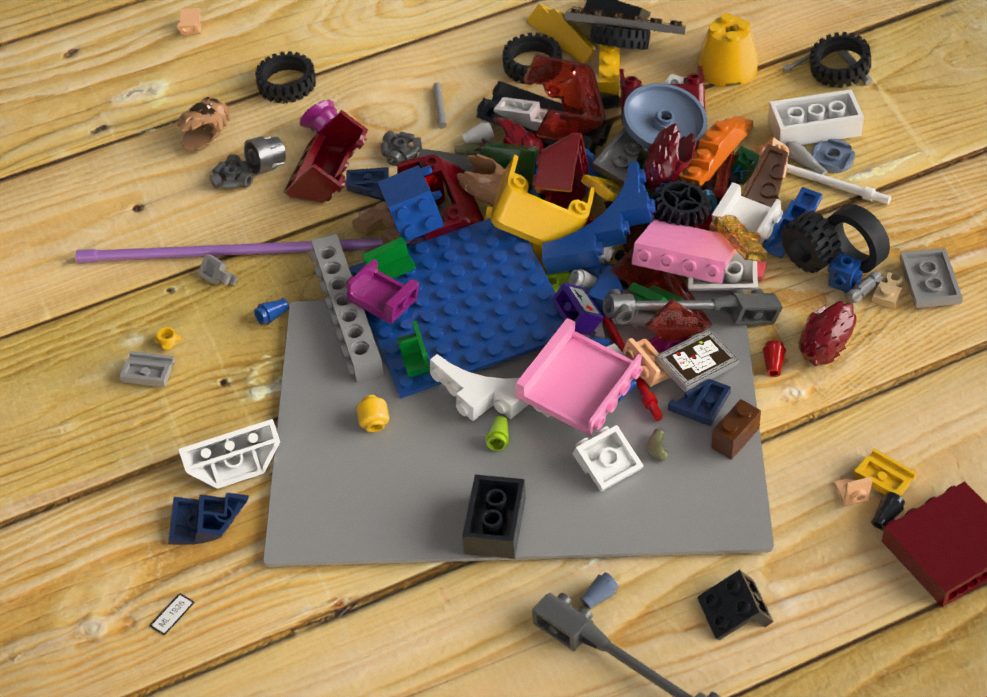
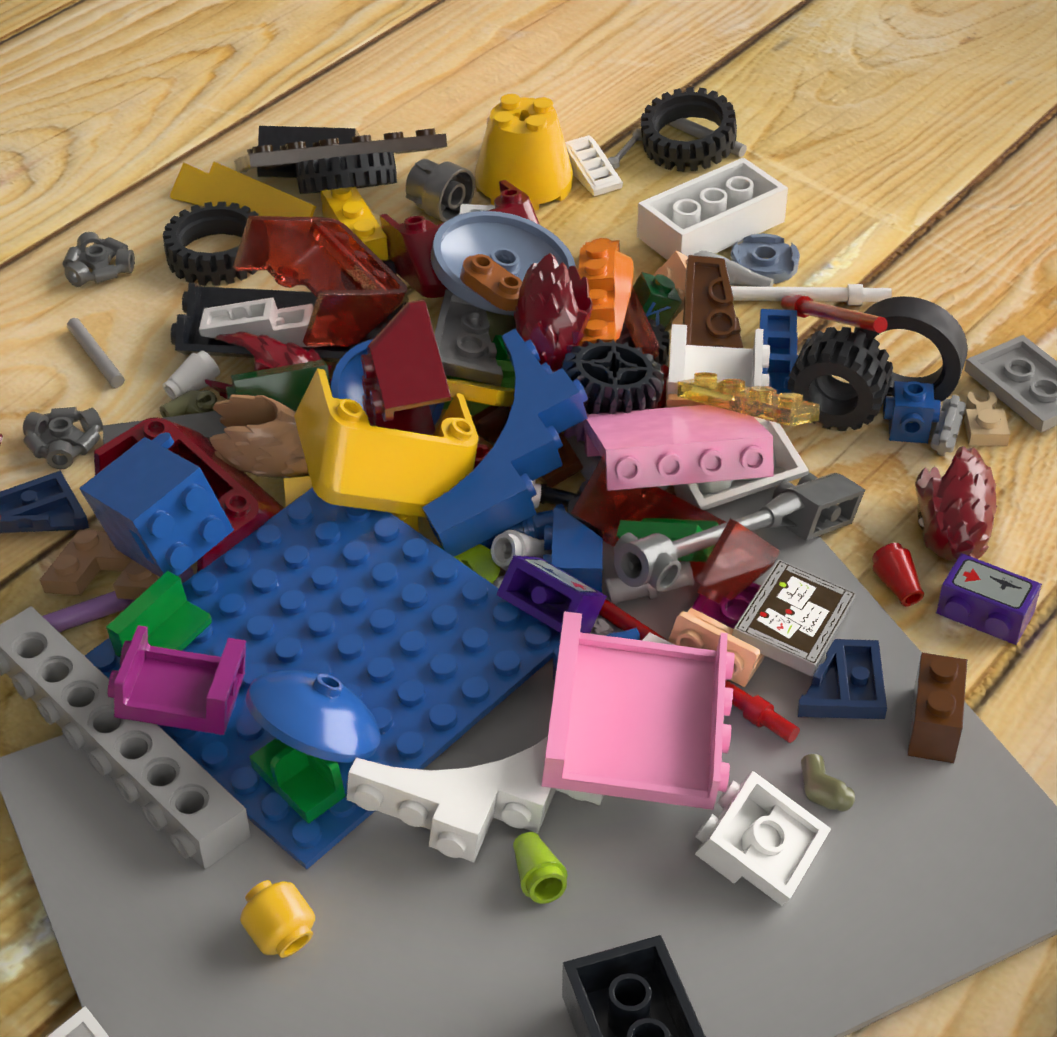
camera: 30 degrees left, 5 degrees down
(429, 328) = (314, 715): none -> blue dish
(467, 49) = (97, 258): none -> dark grey piece
(645, 127) = (491, 281): none -> dark orange plate
(669, 59) = (440, 188): none -> flat silver piece
(769, 66) = (590, 164): none -> white slope
(811, 386) = (988, 598): none -> dark purple brick
(827, 193) = (807, 307): none -> red bar

